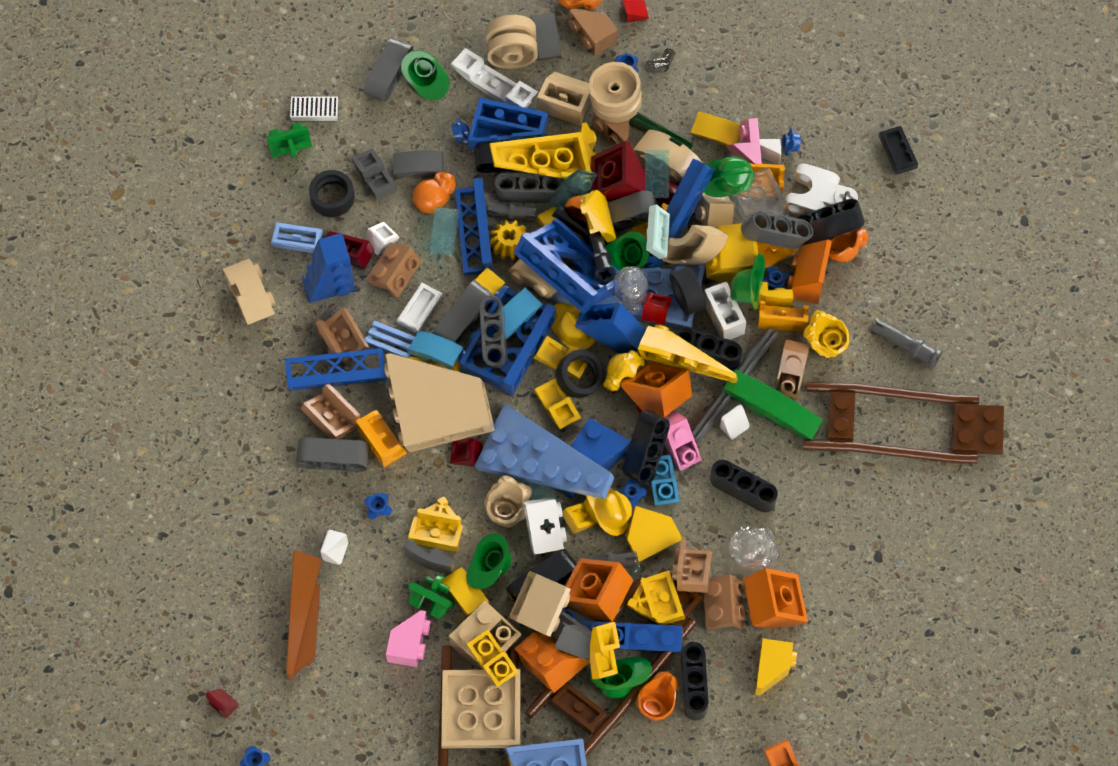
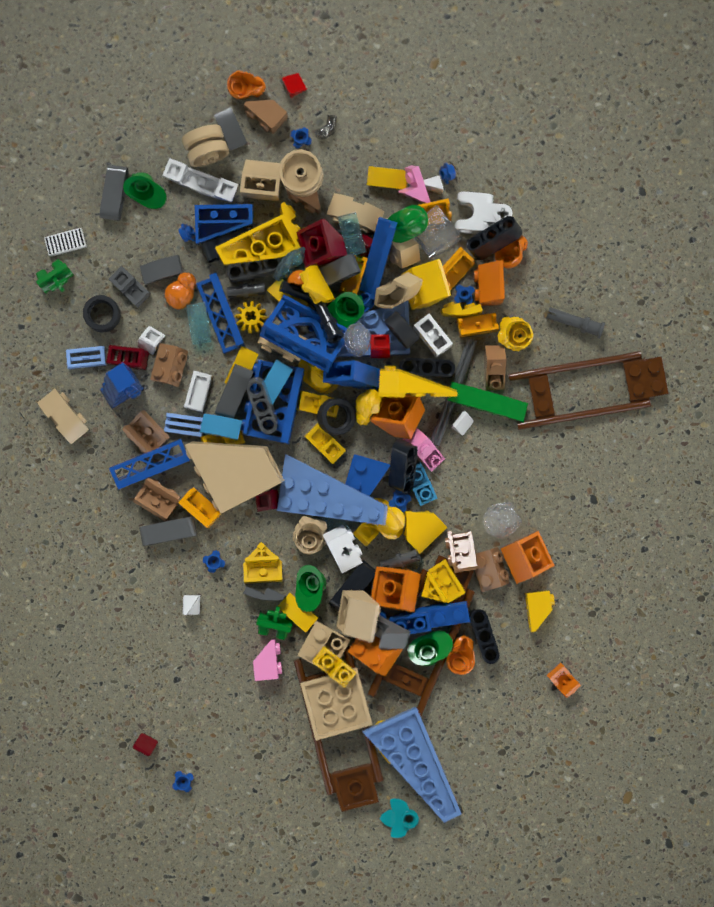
camera: 15 degrees left, 20 degrees up
(303, 612) = (184, 662): dark orange wedge -> none
(602, 657) = (414, 641): yellow slope -> none
(645, 124) = (338, 188): dark green axle -> none
(658, 231) = (366, 287): light aqua plate -> none
(739, 475) = (491, 473): black beam -> none
(748, 283) = (445, 312): green piece -> none
(776, 230) = (450, 262): dark grey beam -> none
(898, 150) = (532, 157): black plate -> none

